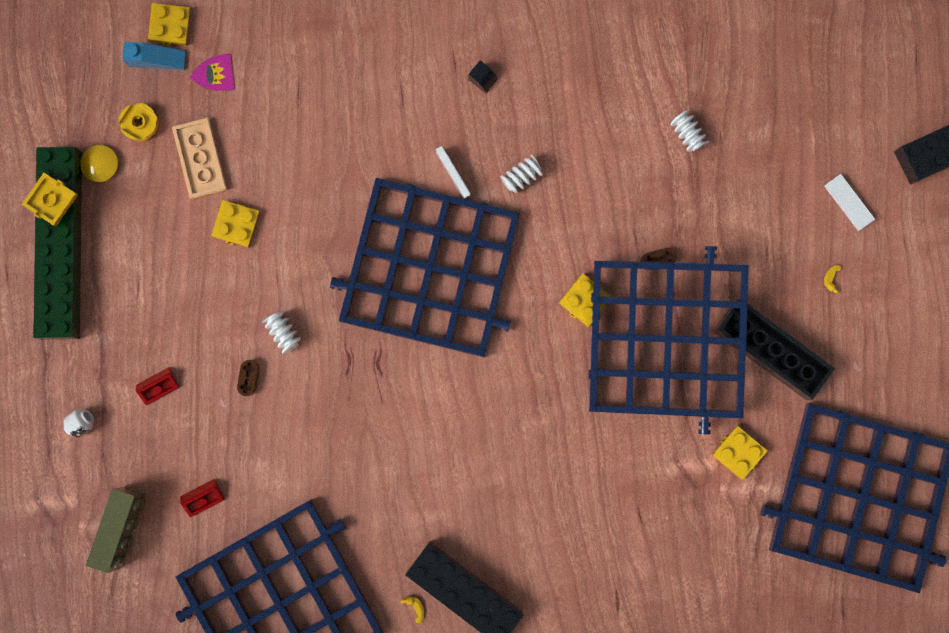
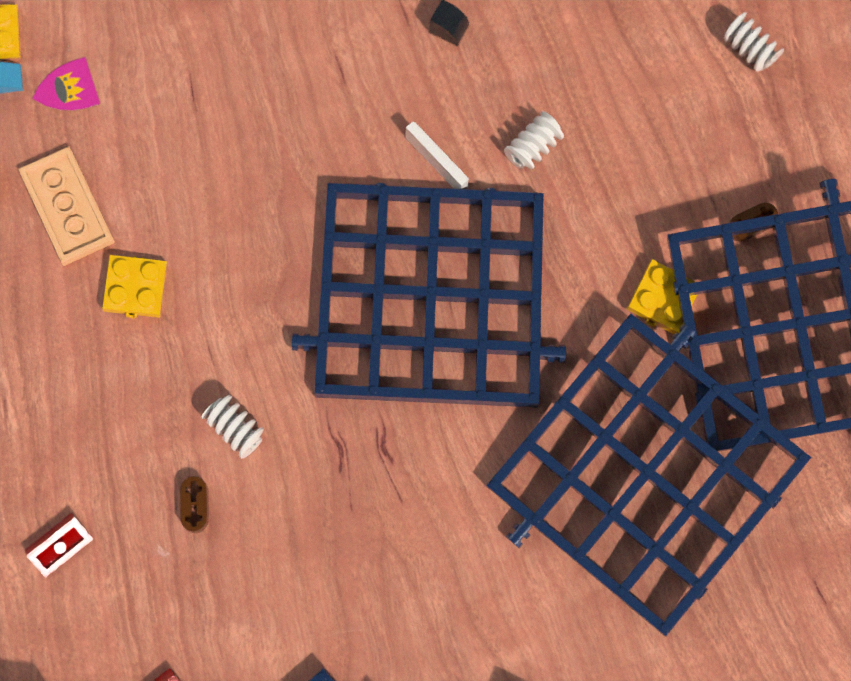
camera: 15 degrees left, 10 degrees down
(543, 417) = (648, 472): none -> dark blue piece

